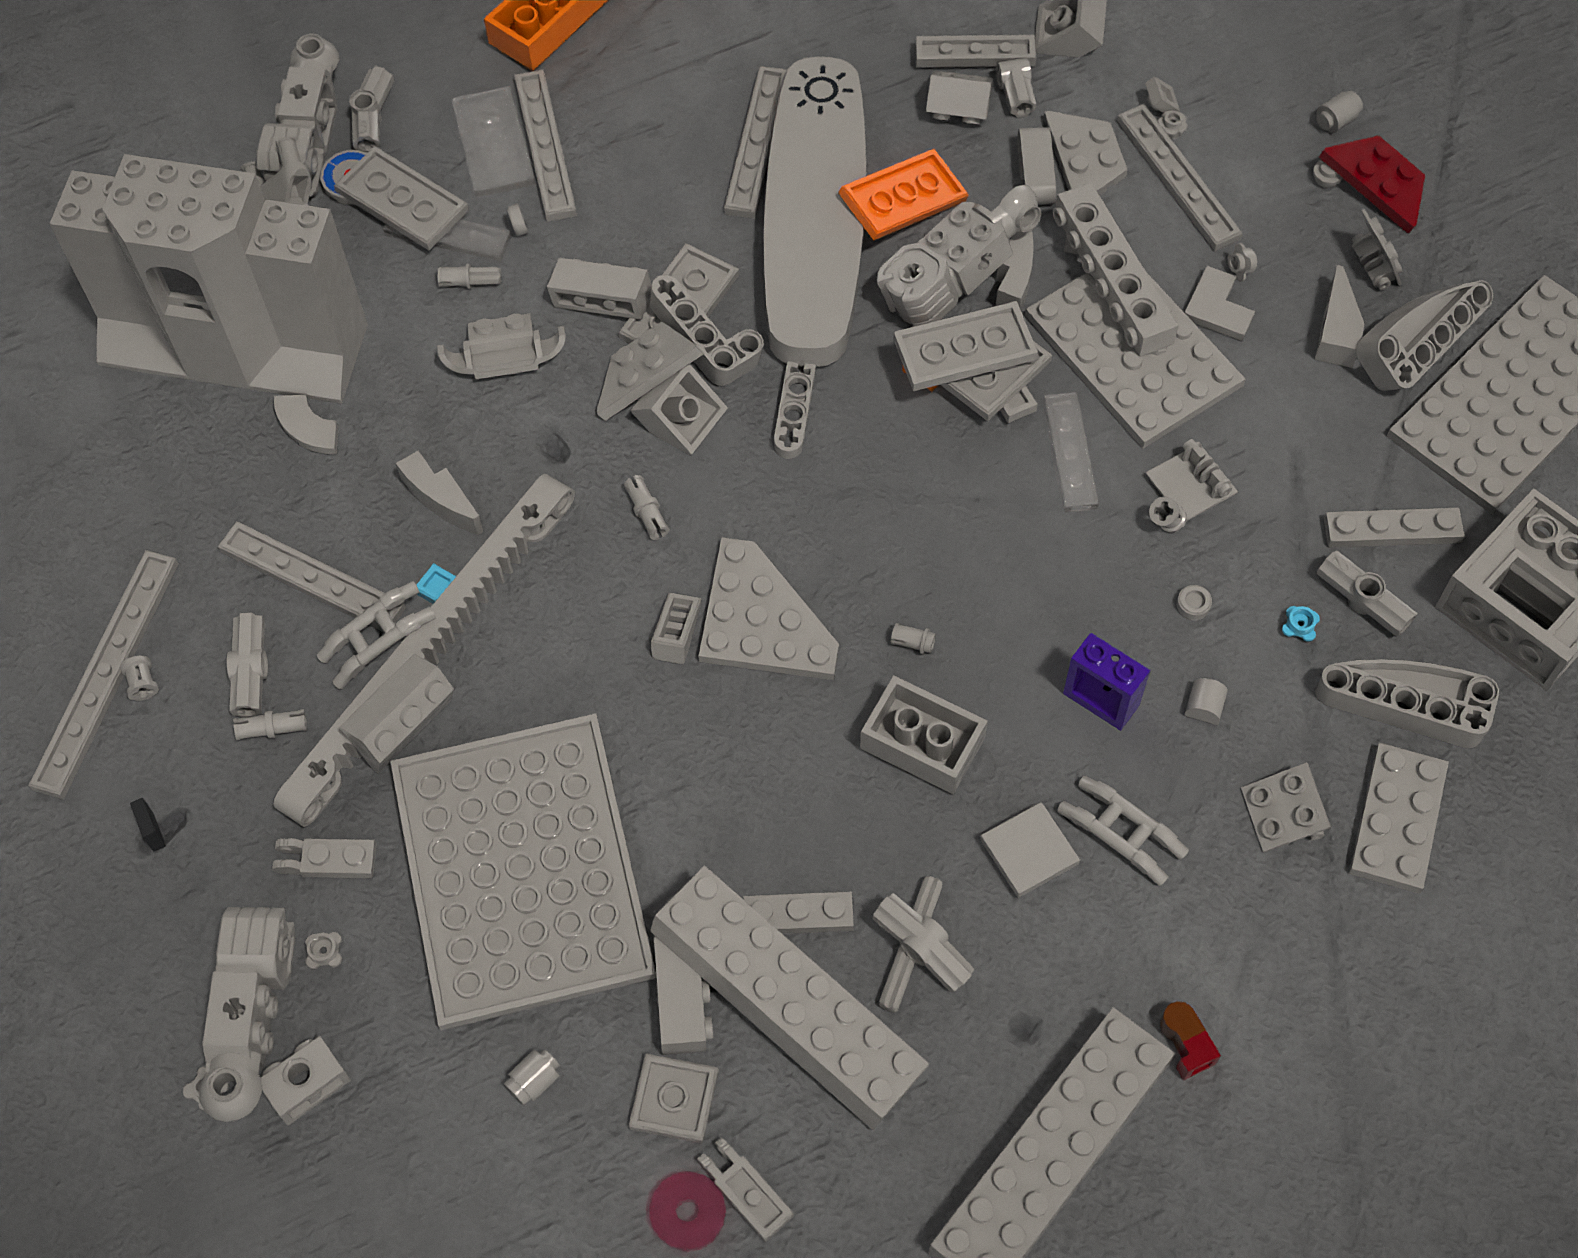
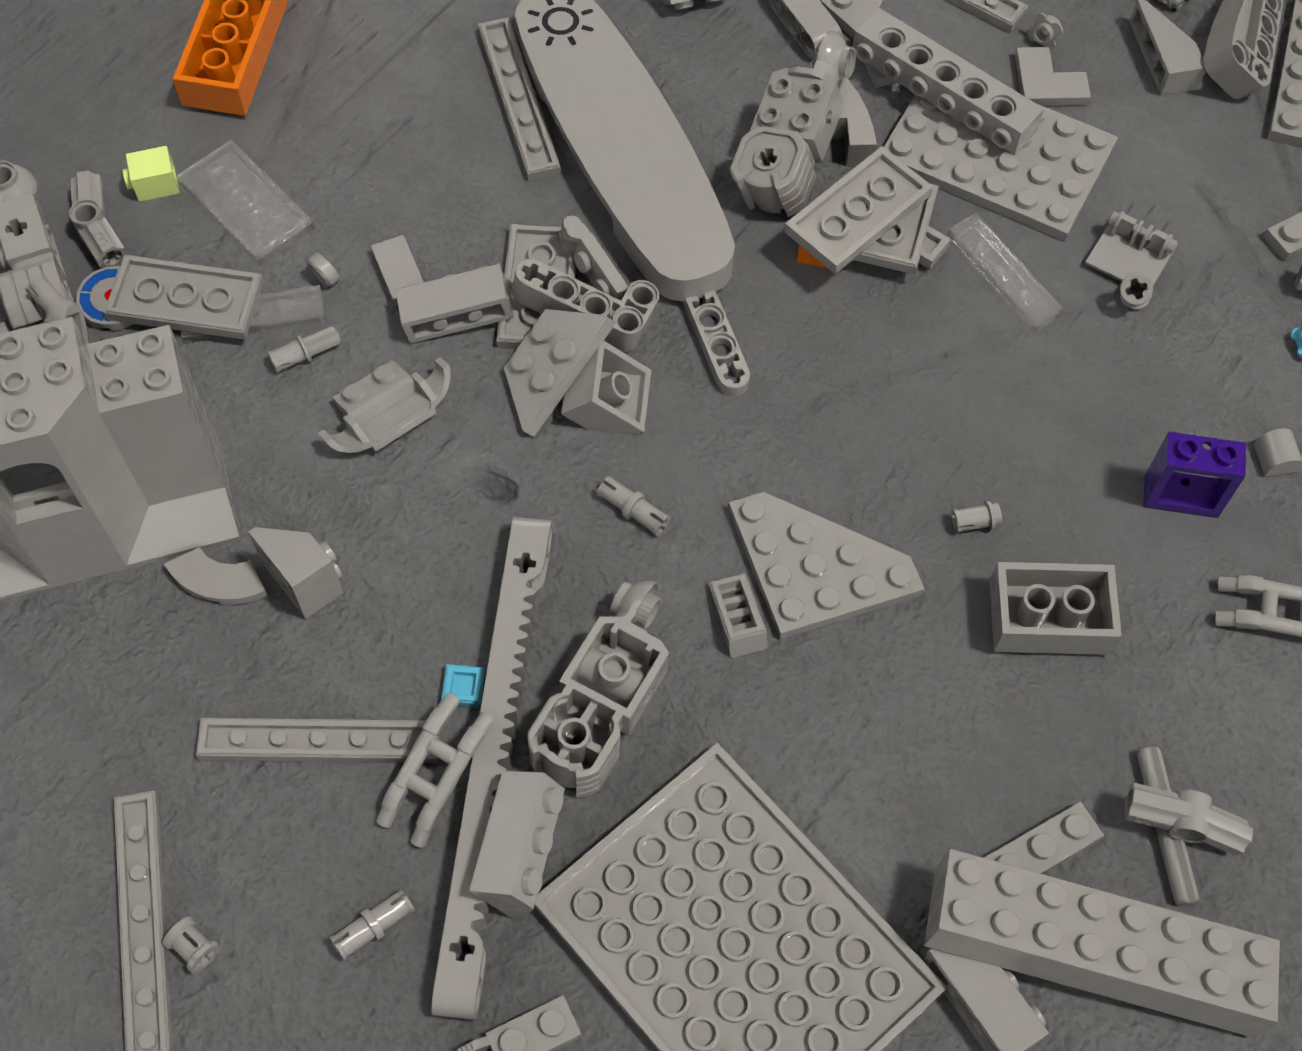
camera: 30 degrees left, 0 degrees up
(247, 665) = (307, 871): light grey piece -> none
(363, 442) = (299, 567): none -> light grey slope
(432, 89) = (151, 173): none -> yellowish green brick
(438, 493) = (410, 587): light grey slope -> none
(529, 635) = (601, 693): none -> light grey brick
(545, 146) = (304, 185): light grey tile -> none
(579, 238) = (396, 265): none -> light grey tile
(727, 296) = (591, 257): none -> light grey hinge
(903, 194) = (700, 90): orange tile -> none
(1029, 849) = (1218, 674): light grey tile -> none
(1194, 602) = (1205, 365): light grey tile -> none

